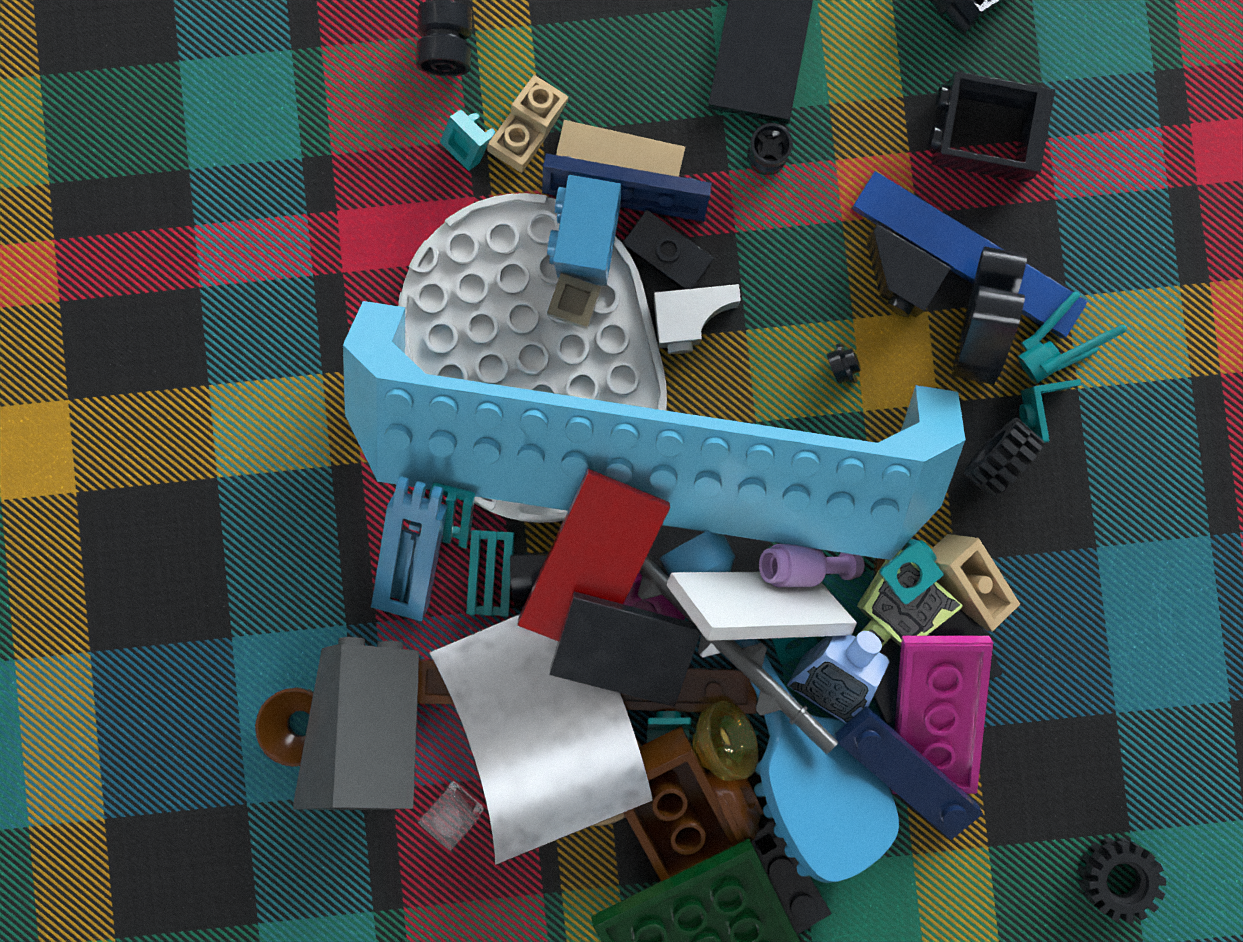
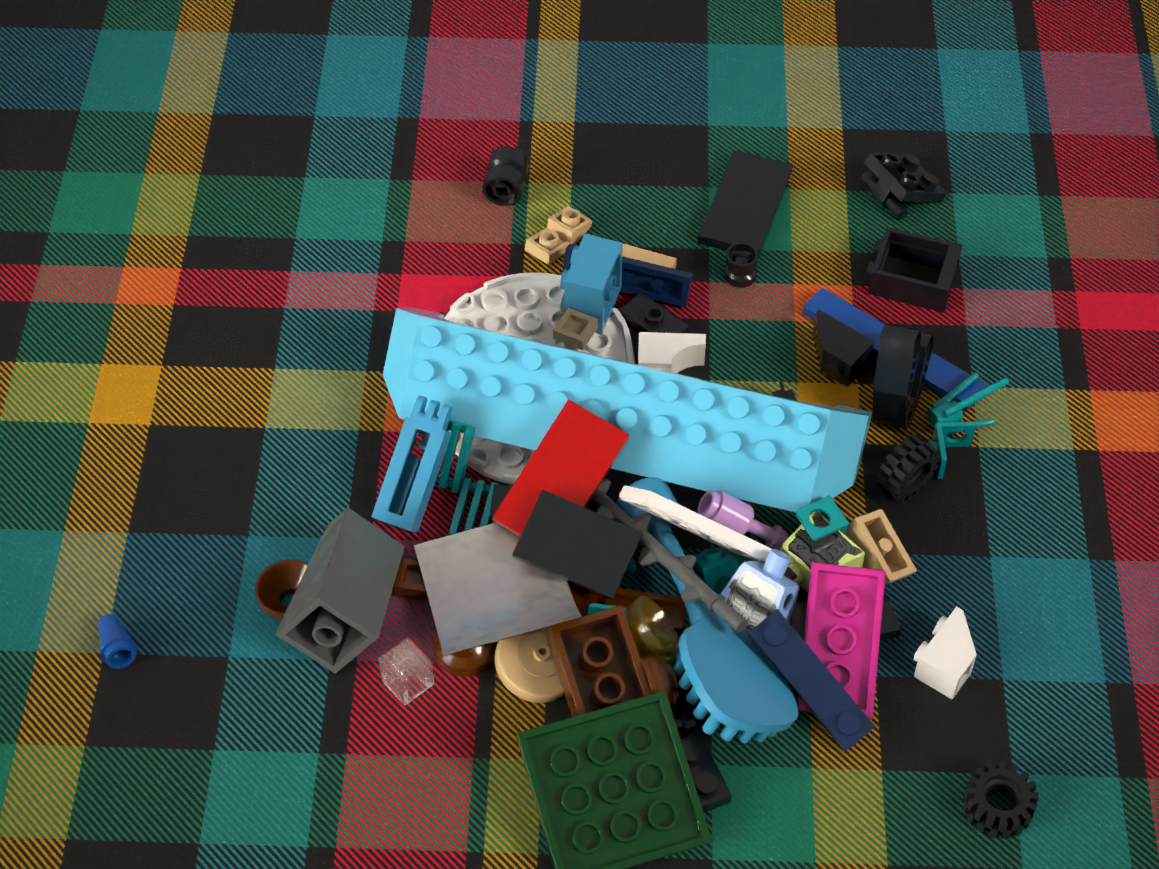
camera: 10 degrees right, 35 degrees down
(113, 815) = (116, 644): none -> blue cone
(466, 139) = (509, 235): teal tile -> none
(1059, 704) = (948, 657): none -> white slope

